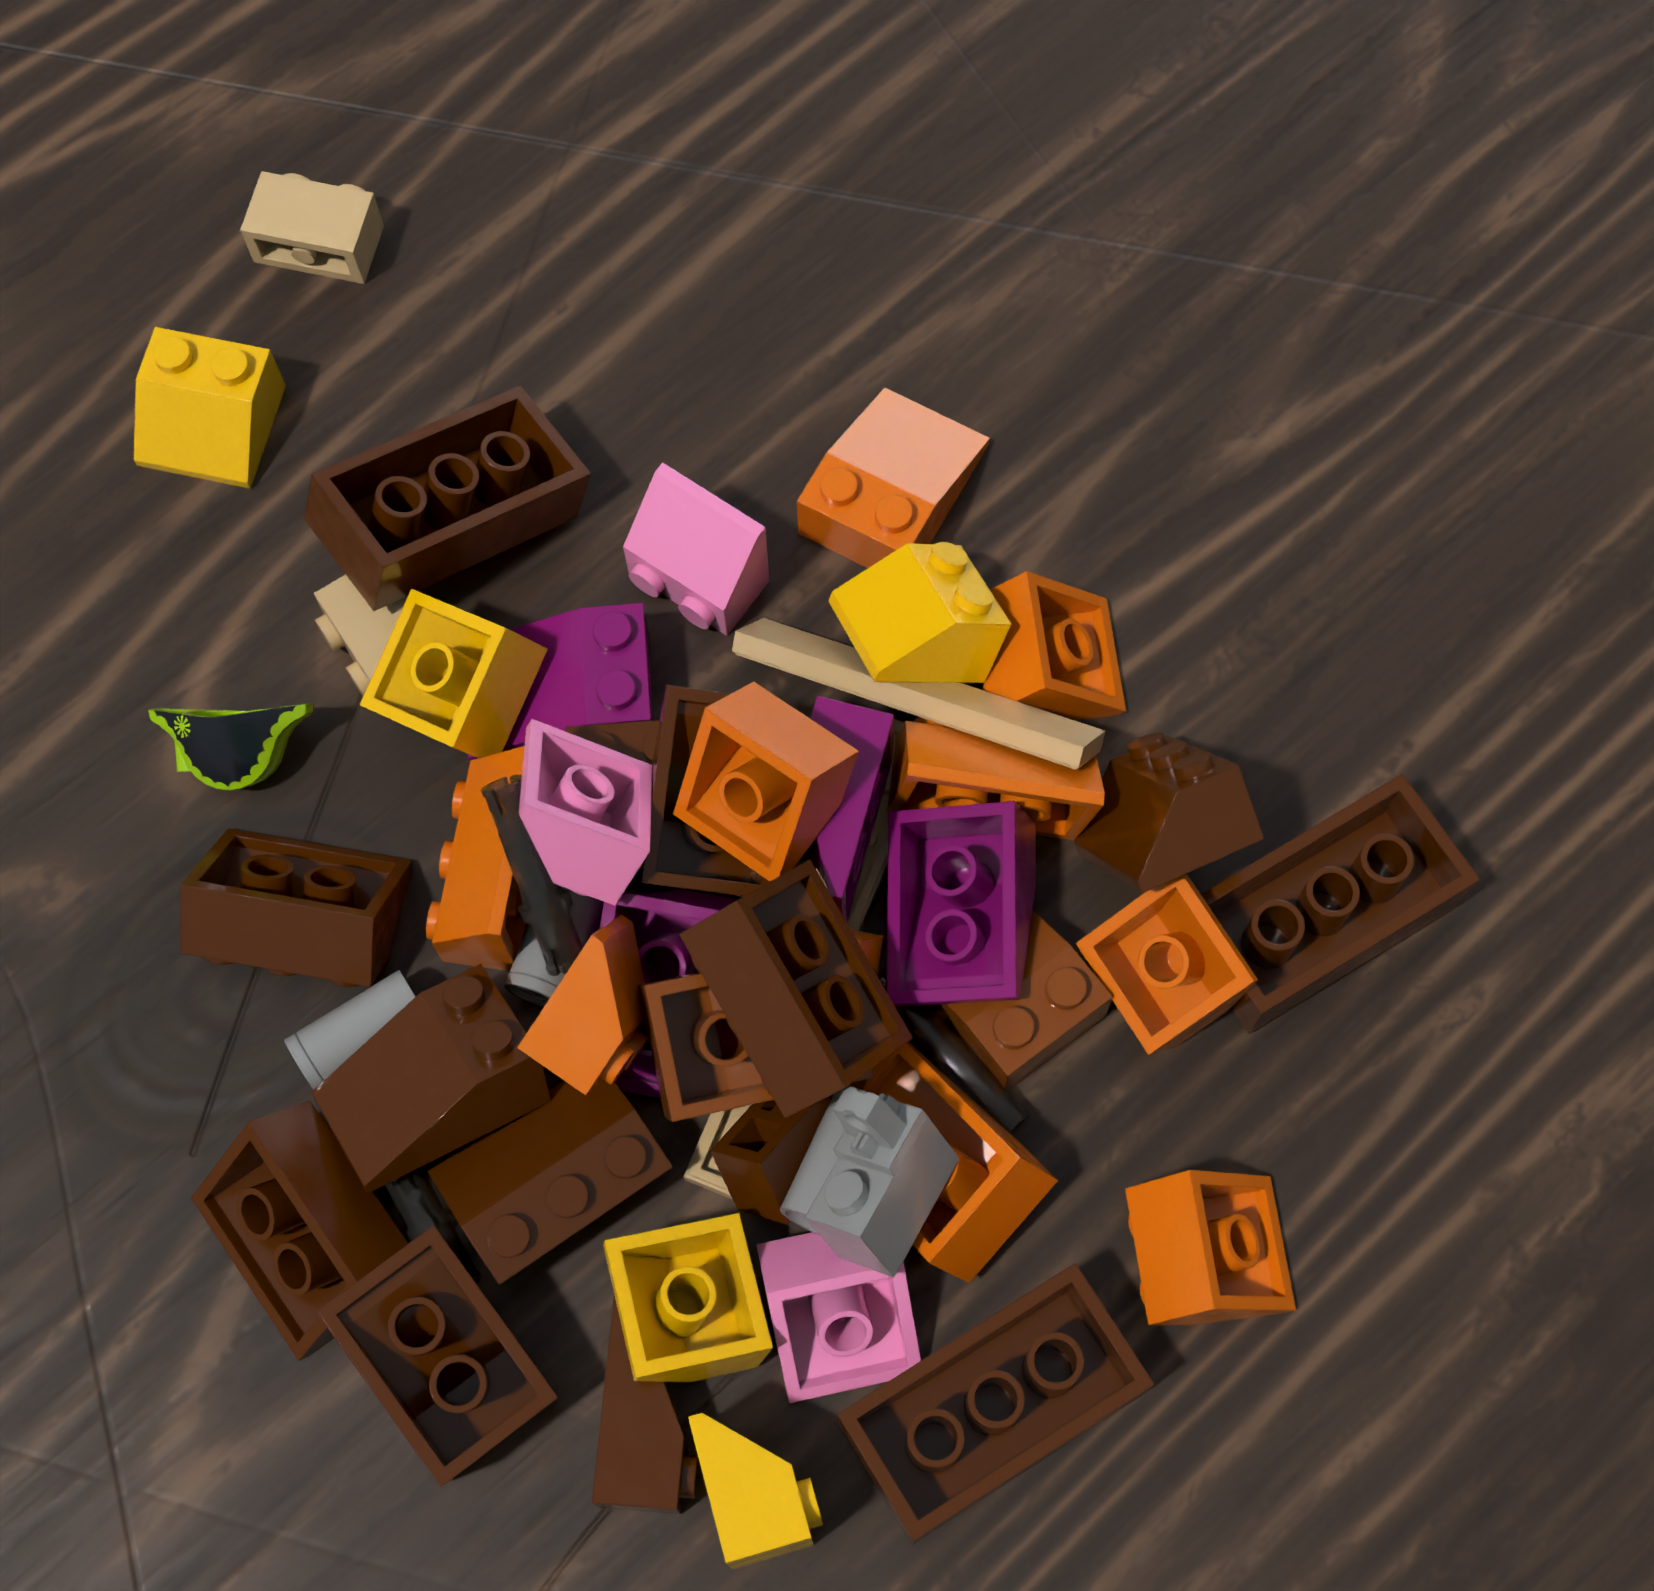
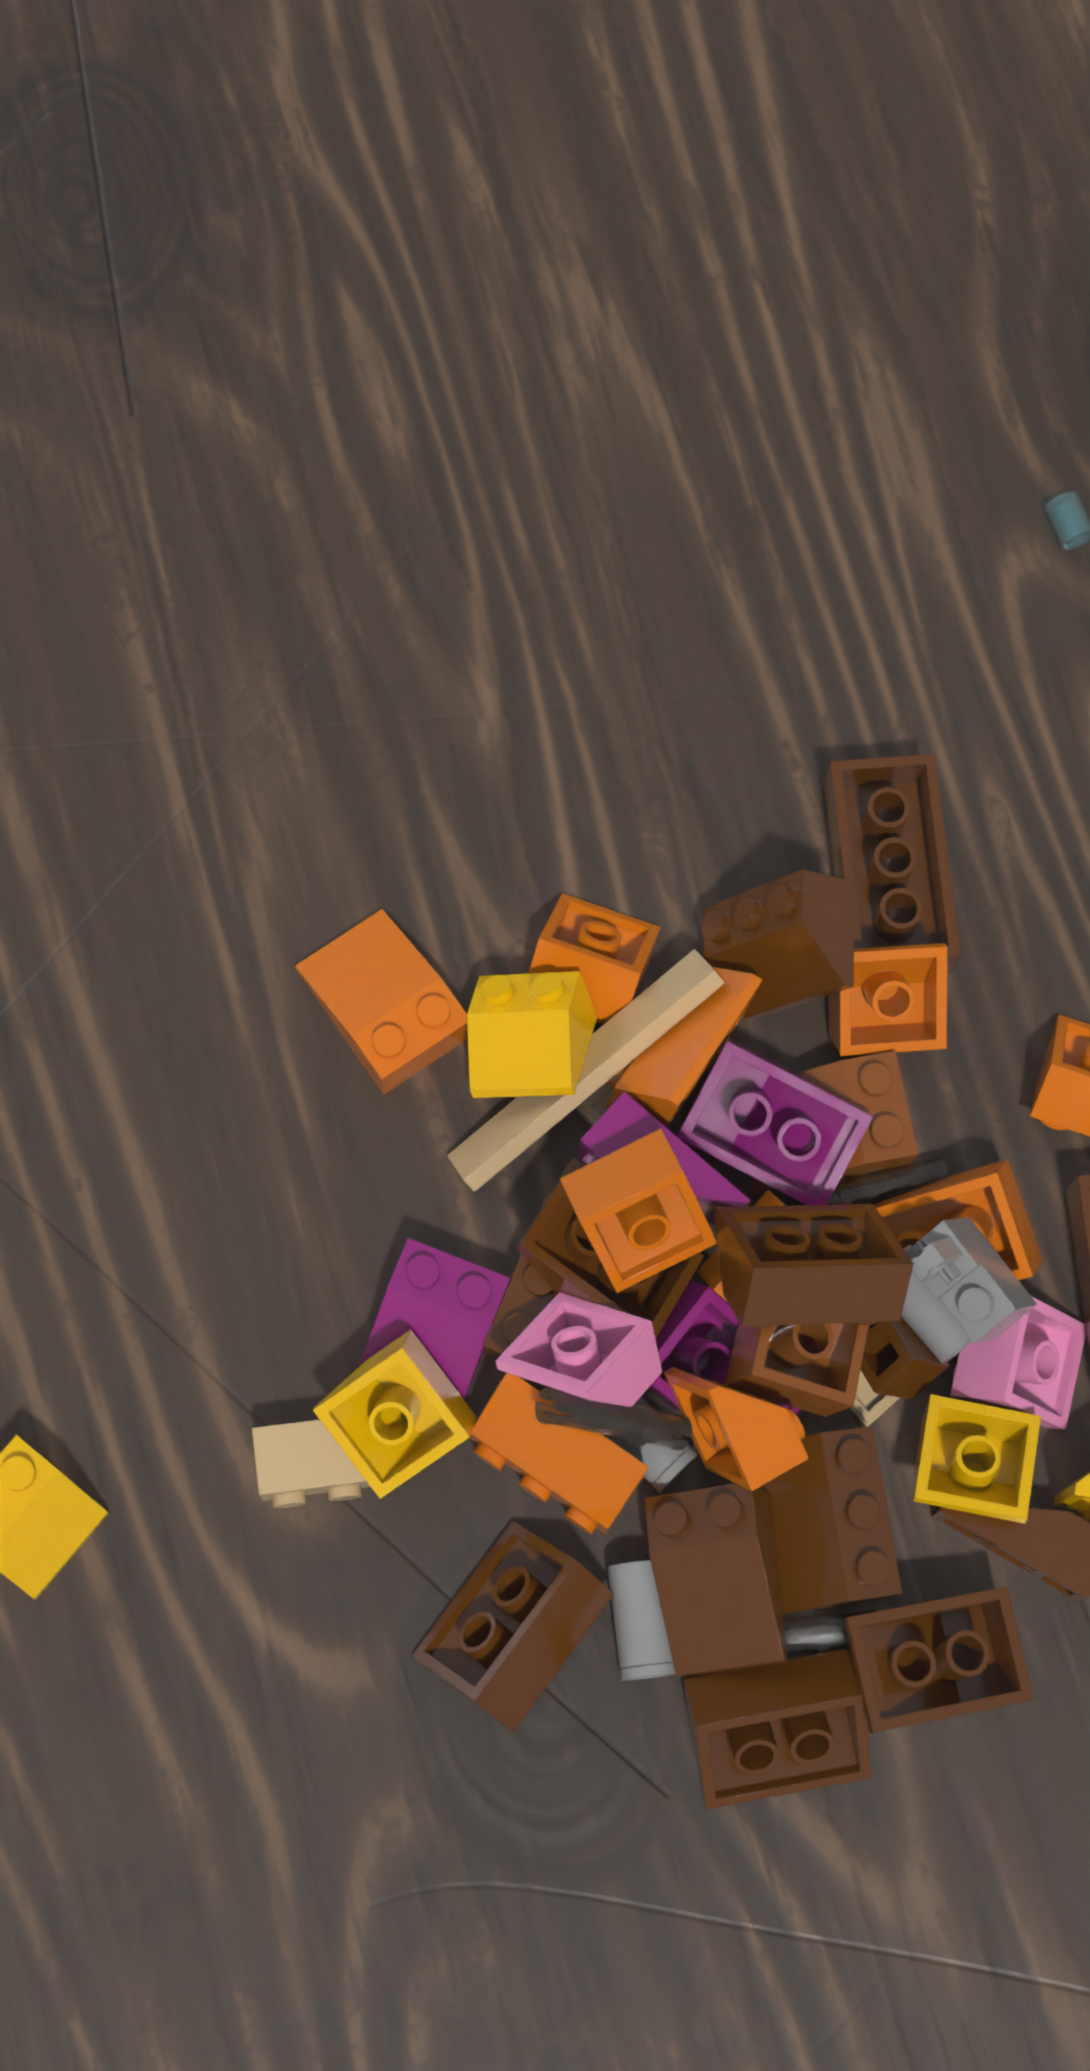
camera: 70 degrees left, 5 degrees up
(230, 745) = (346, 1618): hat -> none
(445, 496) = (236, 1349): reddish brown brick -> none
(696, 552) = (379, 1179): bright pink slope -> none

